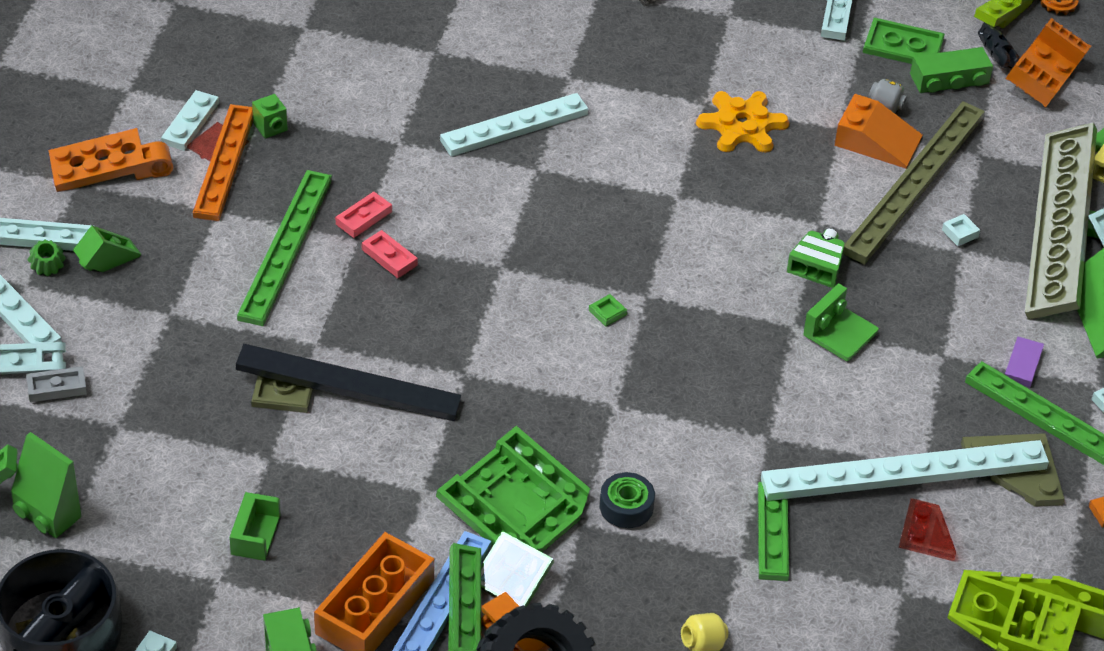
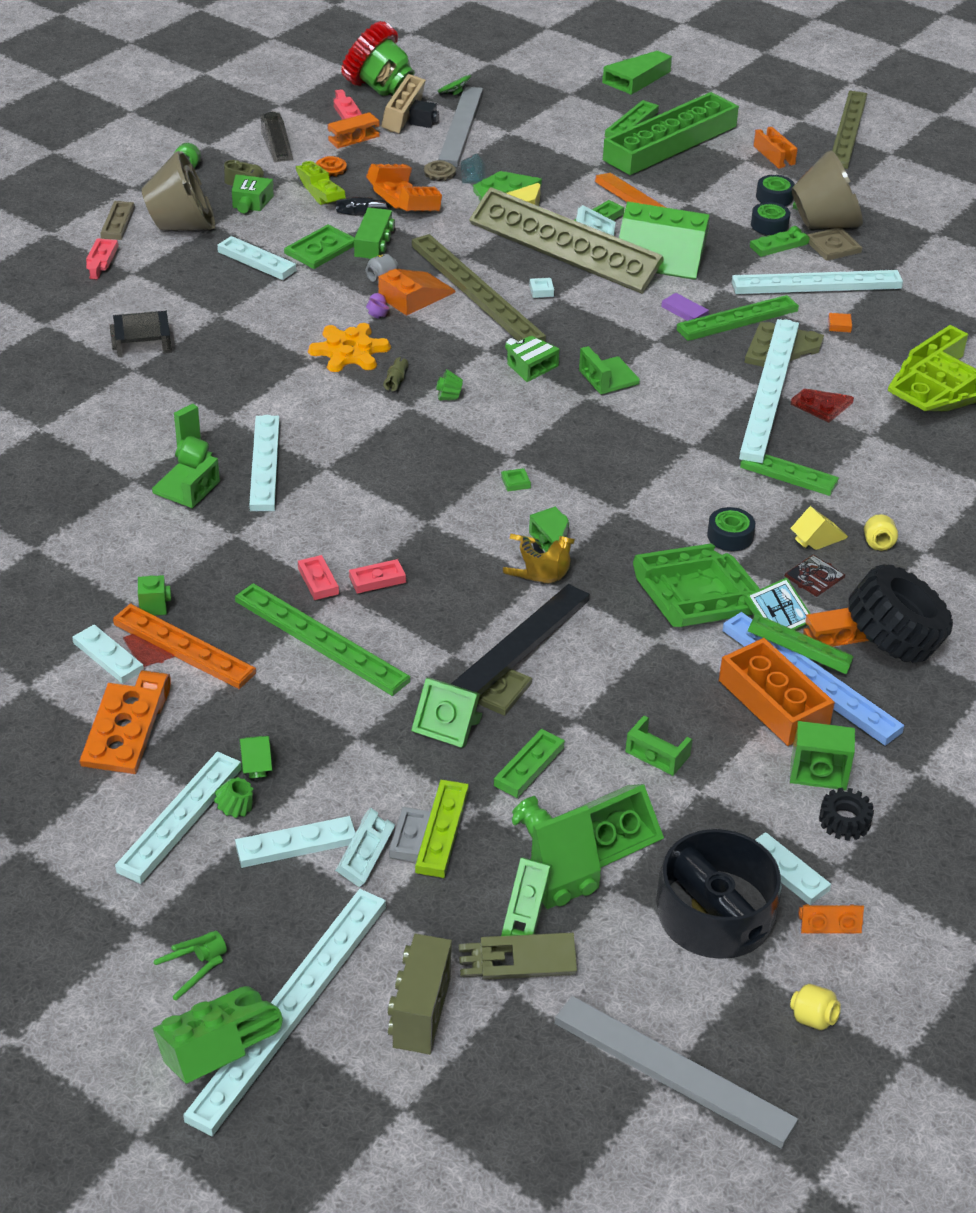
camera: 65 degrees left, 5 degrees down
(74, 403) = (441, 829): none -> lime plate
(107, 465) = (529, 814): none -> bright green animal
(126, 519) = (623, 823): none -> bright green slope
(186, 438) = (529, 763): none -> bright green plate
(216, 358) = (446, 712): none -> bracket
(443, 84) = (188, 484): none -> bright green bracket
(476, 368) = (542, 565): none -> pearl gold piece
(488, 71) = (192, 451): none -> bright green head
(508, 50) = (187, 422): none -> bright green tile
(530, 358) = (548, 526): none -> bright green slope
(604, 596) = (814, 575): none -> piece
(673, 576) = (816, 530): none -> light yellow slope
(716, 167) = (395, 374): none -> olive pin
(718, 210) = (449, 386): none -> bright green piece
(820, 116) = (377, 305): none -> medium lavender plate

